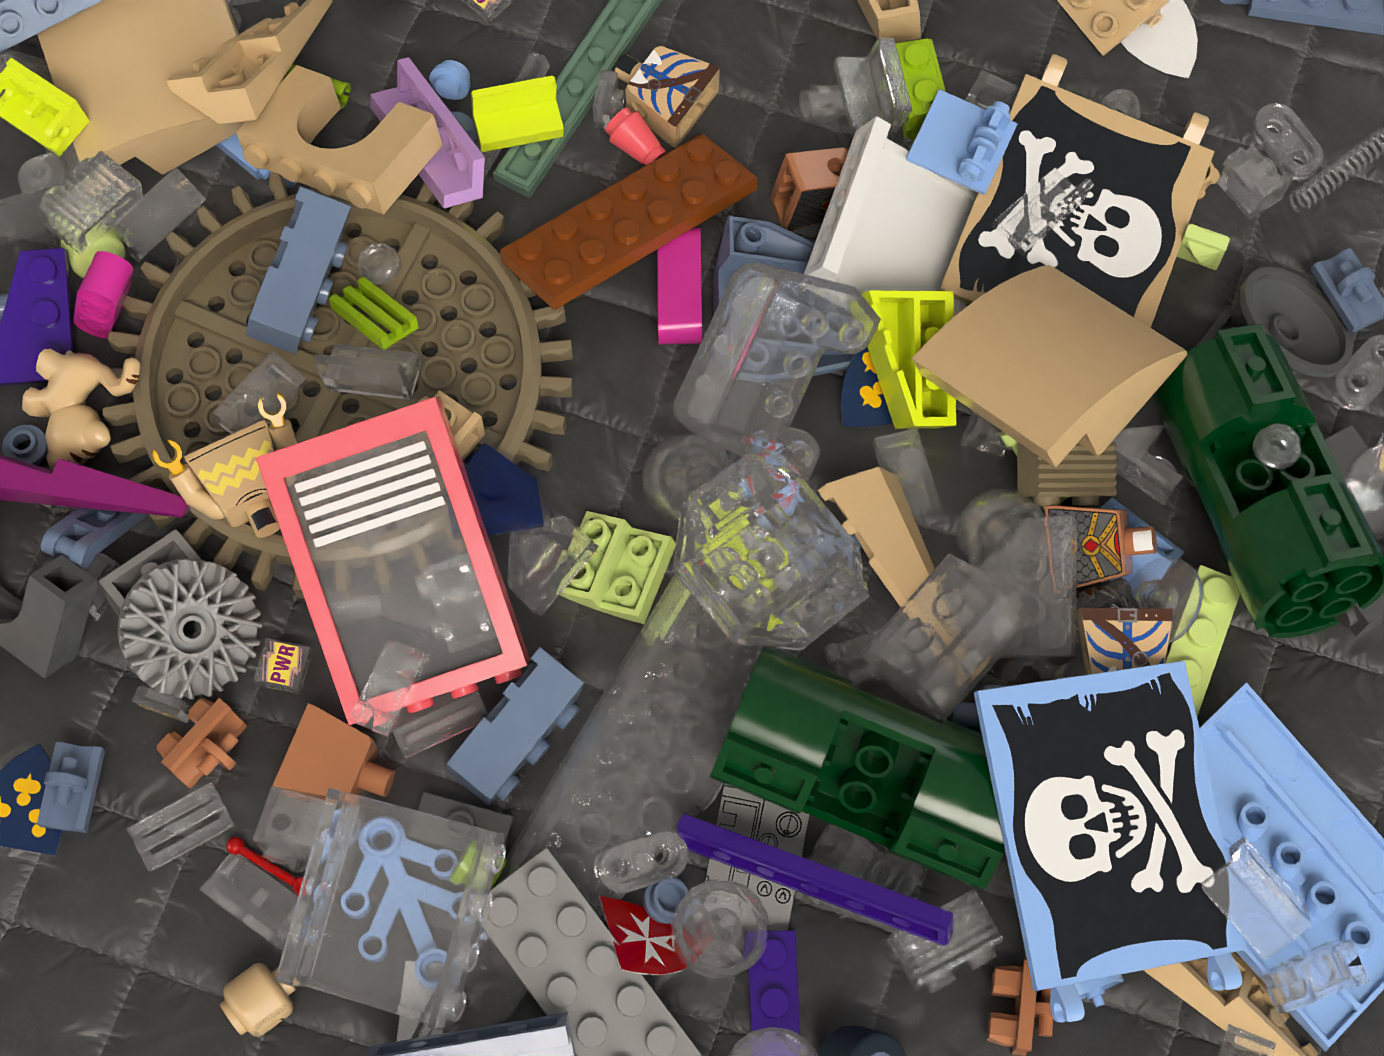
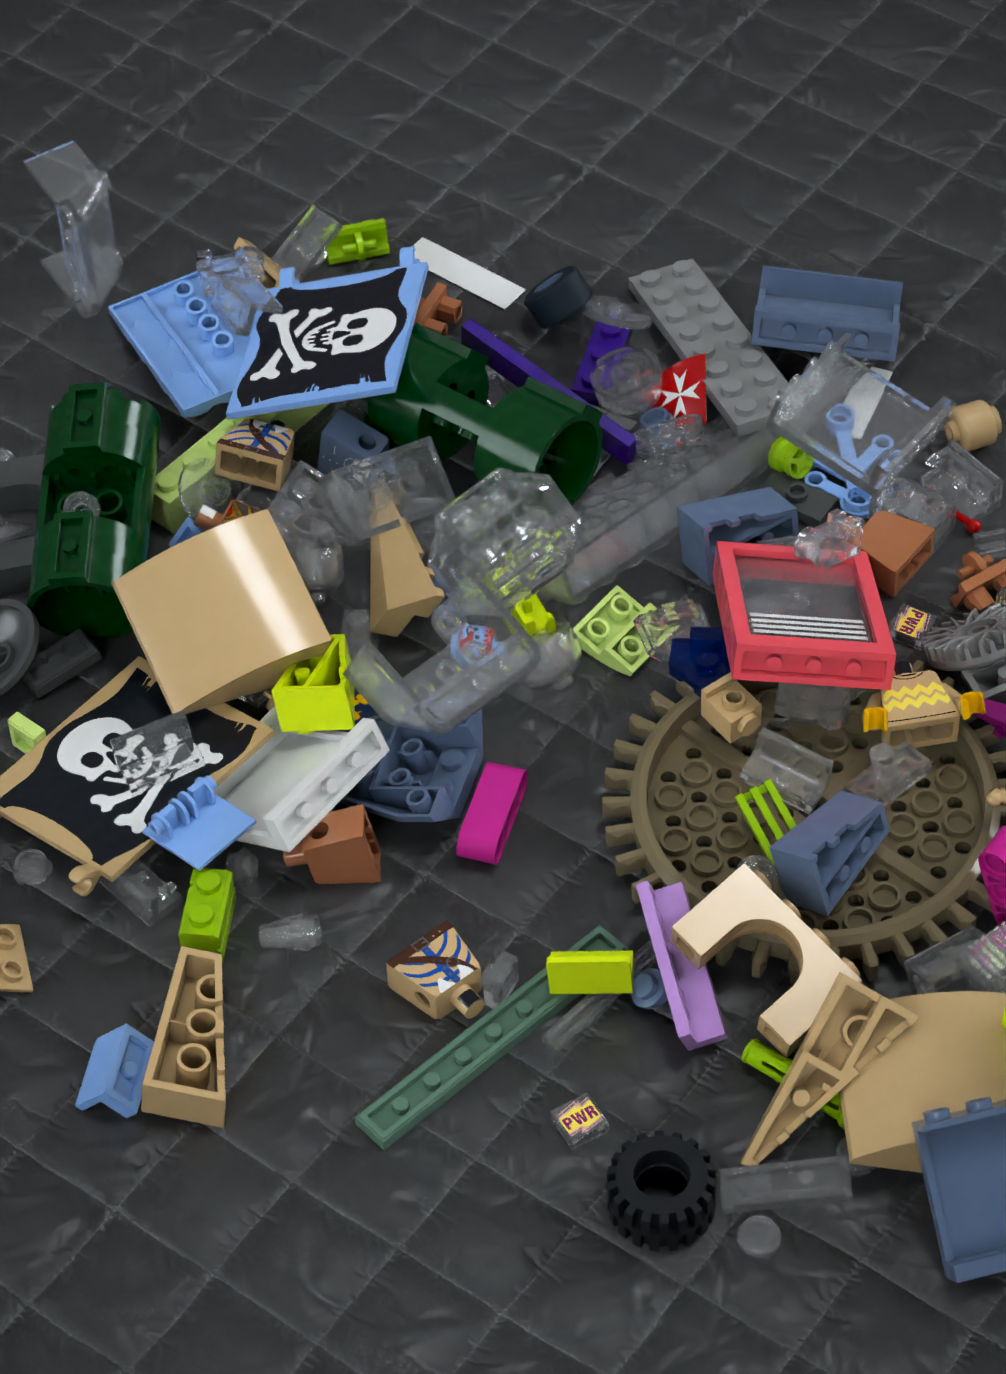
camera: 160 degrees left, 20 degrees down
(450, 80) = (643, 1036): light blue plate -> none
(628, 221) = (518, 853): dark orange plate -> none
(634, 137) = (483, 941): coral cone -> none
(873, 86) = (250, 916): clear panel -> none

